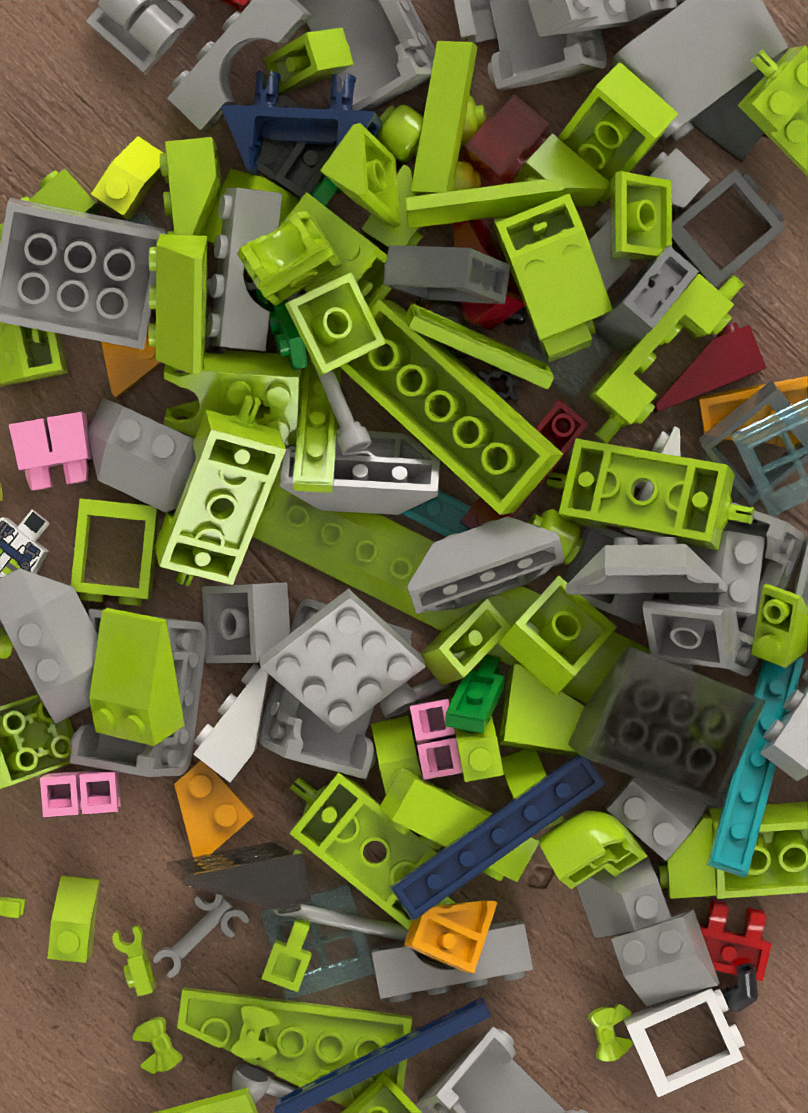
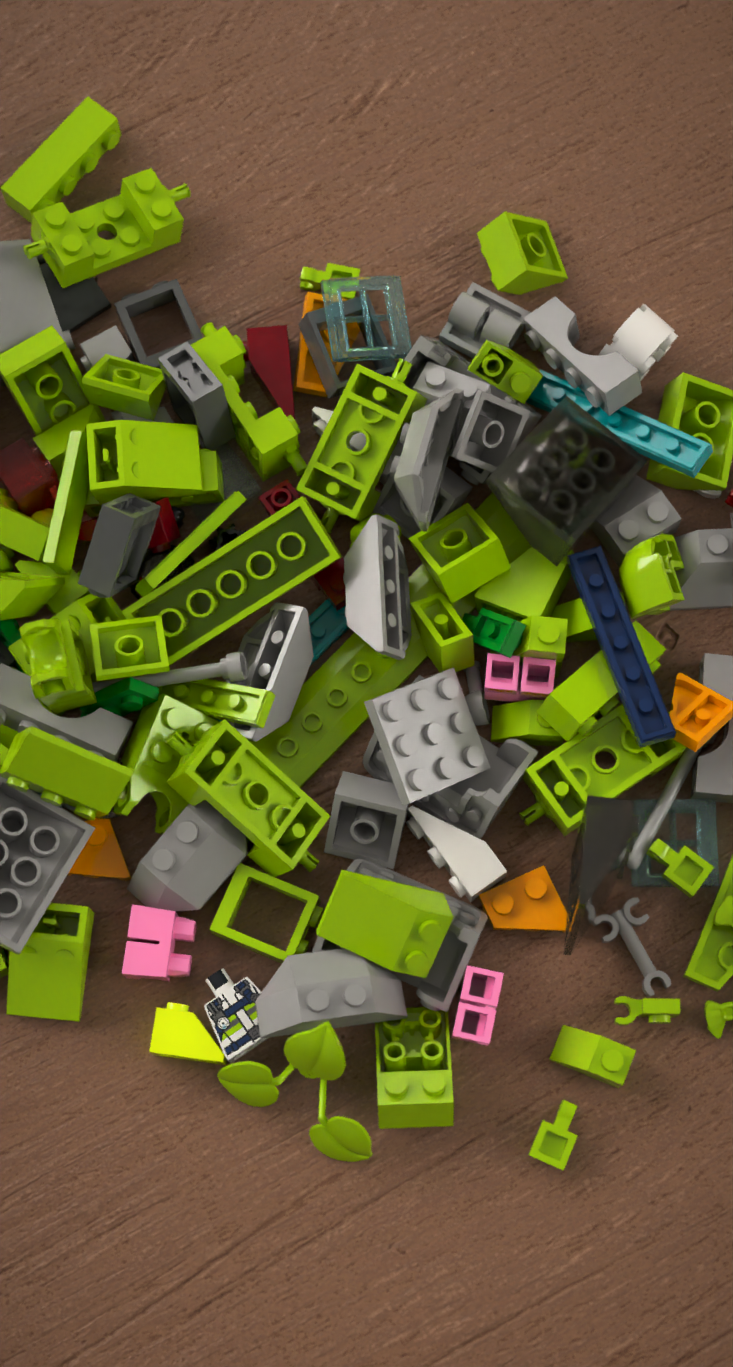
camera: 70 degrees left, 15 degrees down
(687, 870) = (694, 501): lime slope -> none

